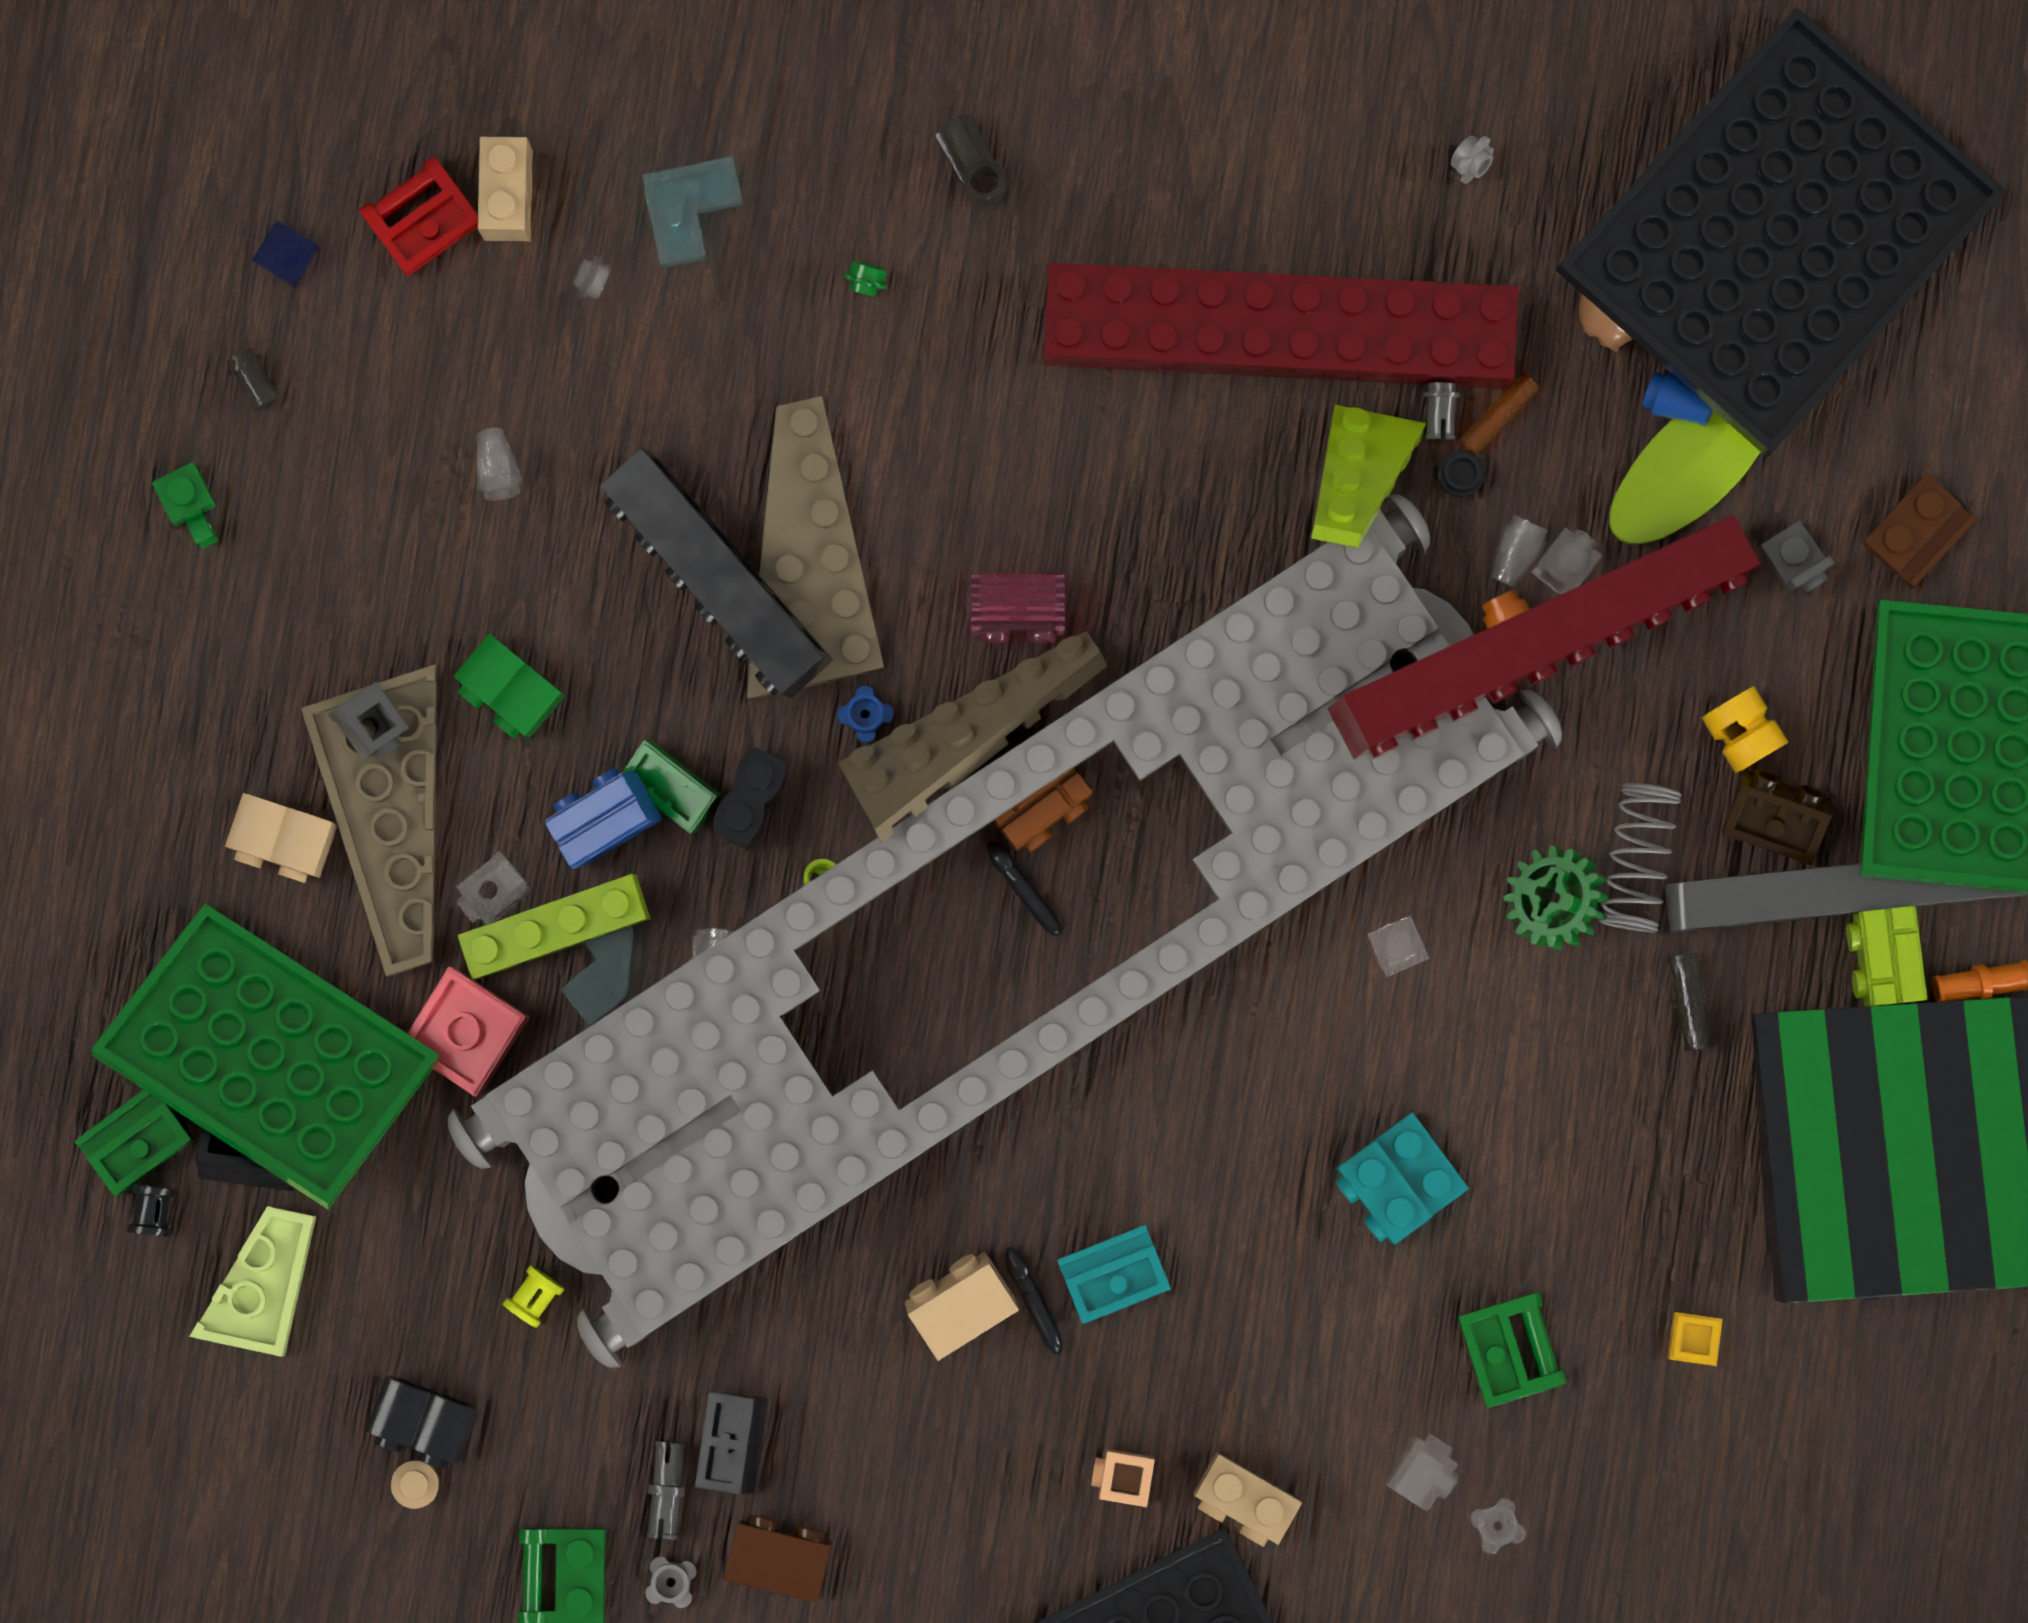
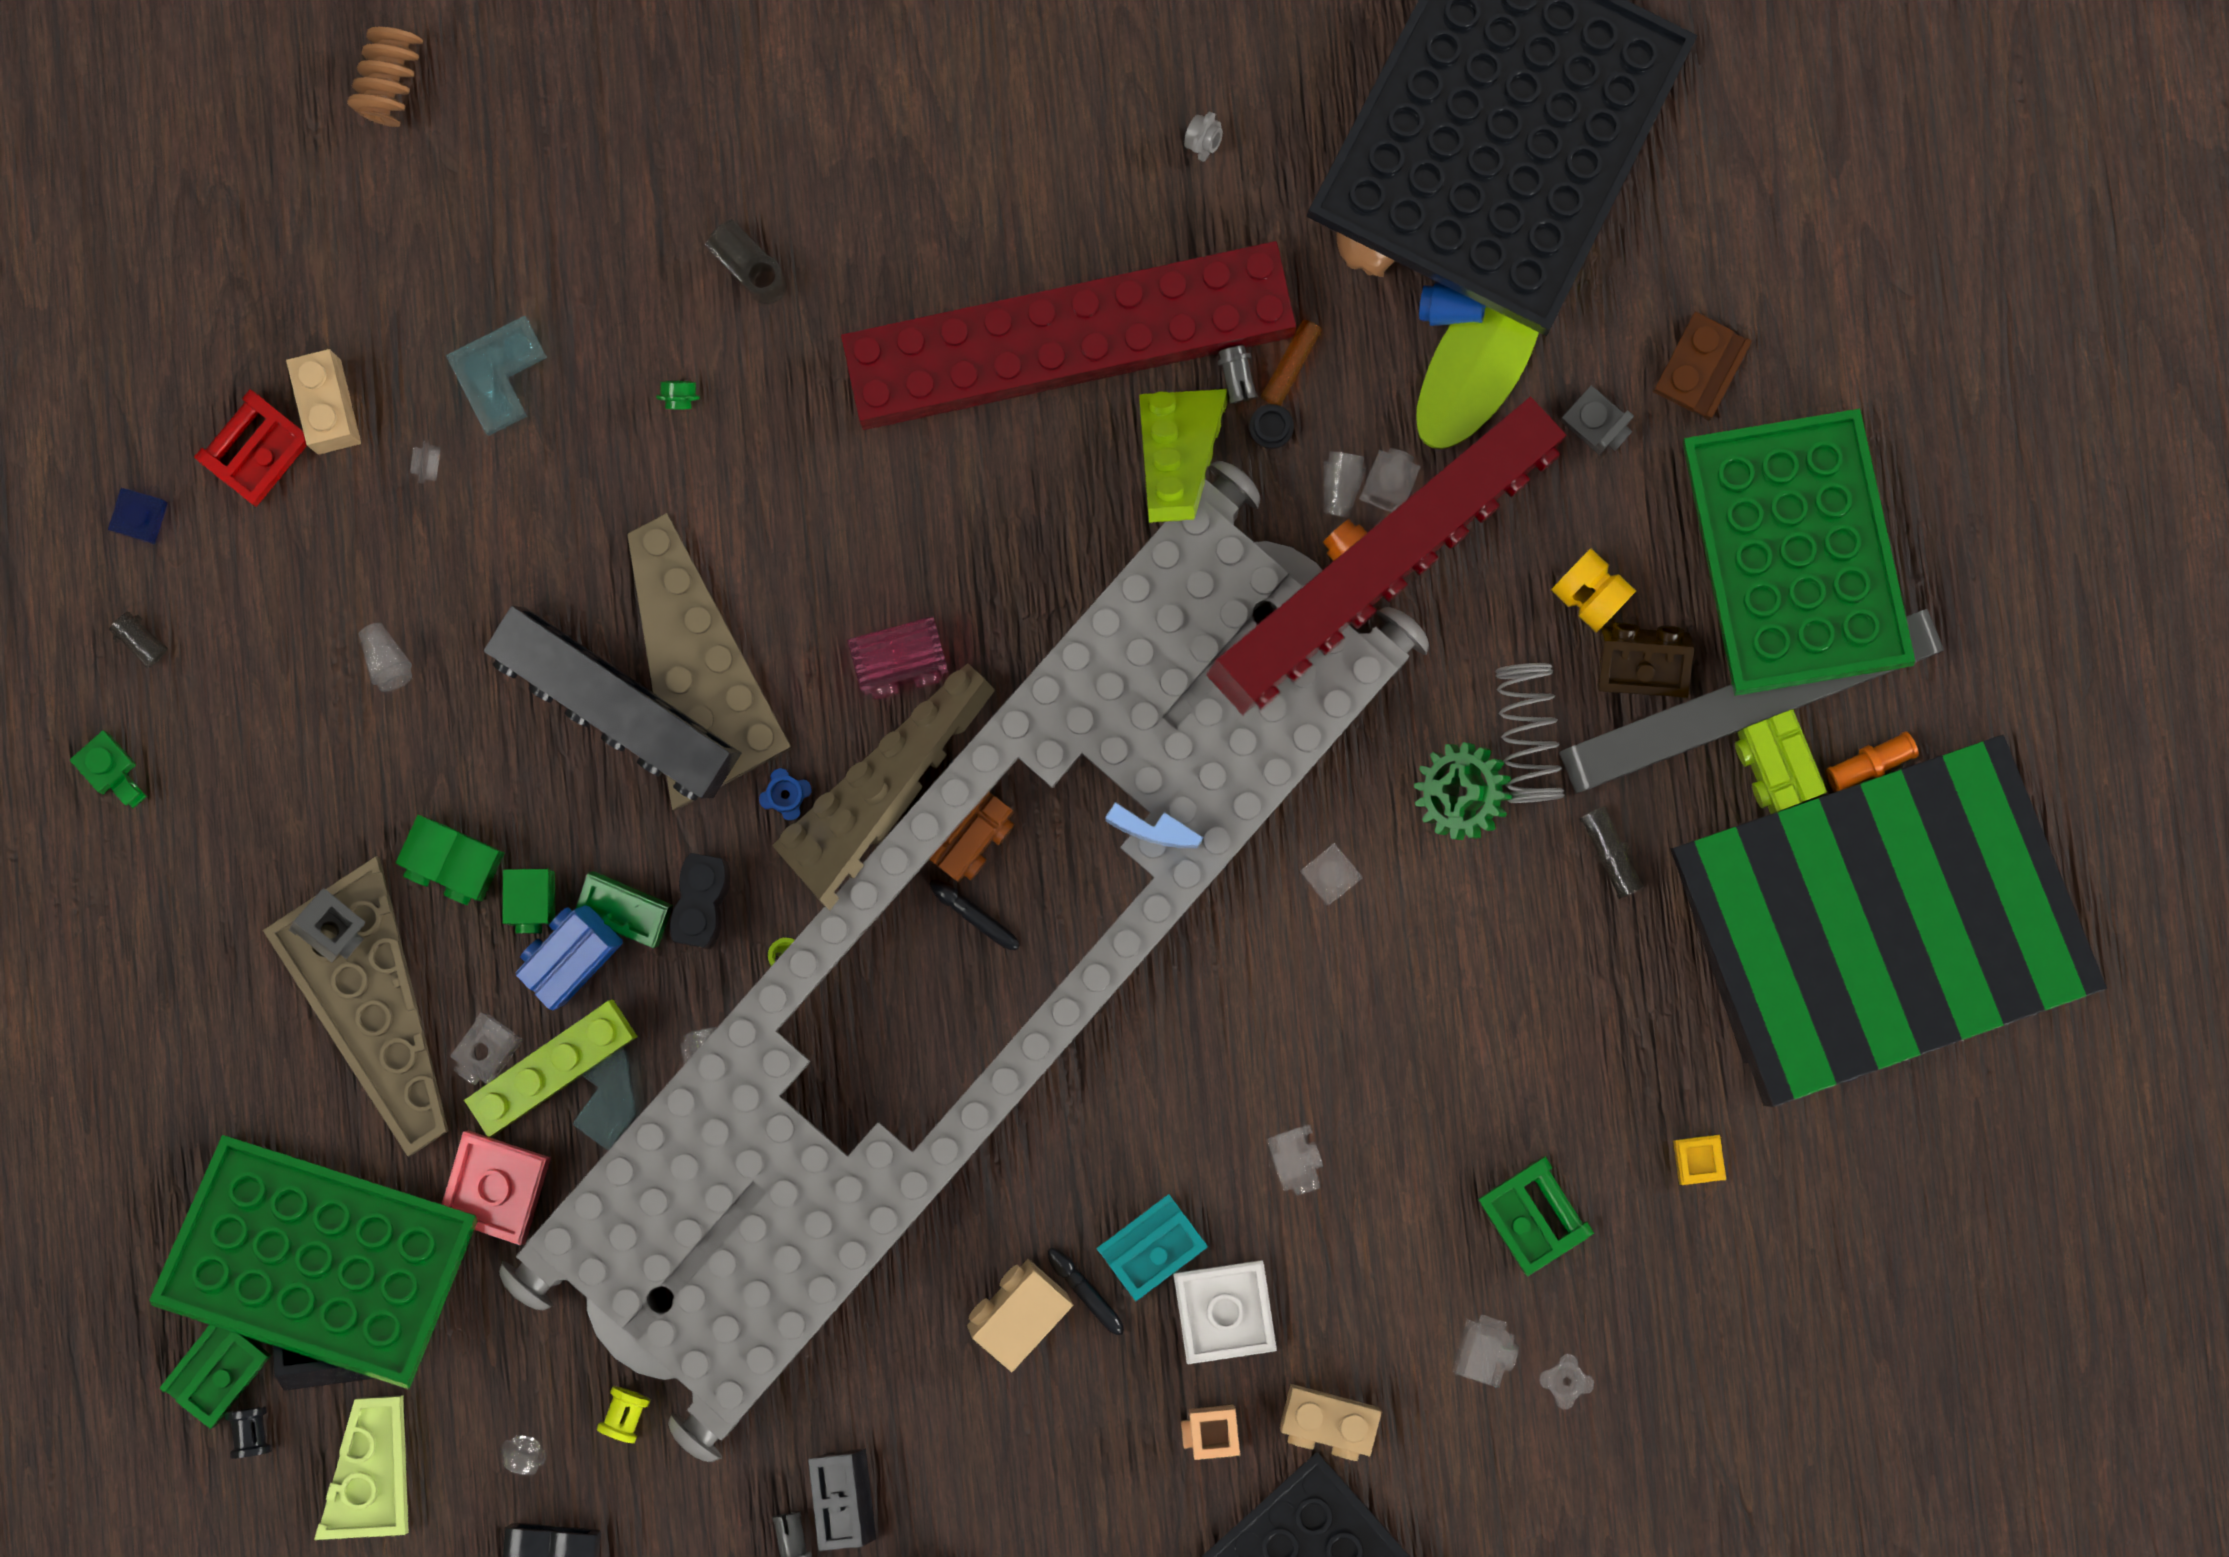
camera: 15 degrees left, 0 degrees up
(280, 837) = (276, 1053): tan brick -> none
(421, 1309) = (523, 1455): none -> clear plate
(577, 750) = (528, 899): none -> green brick
(1169, 1360) = (1225, 1312): none -> white plate
(1243, 857) = (1166, 832): none -> light blue slope
(1283, 1226) = (1295, 1160): none -> clear brick
(1400, 1180) = (1391, 1088): teal plate -> none

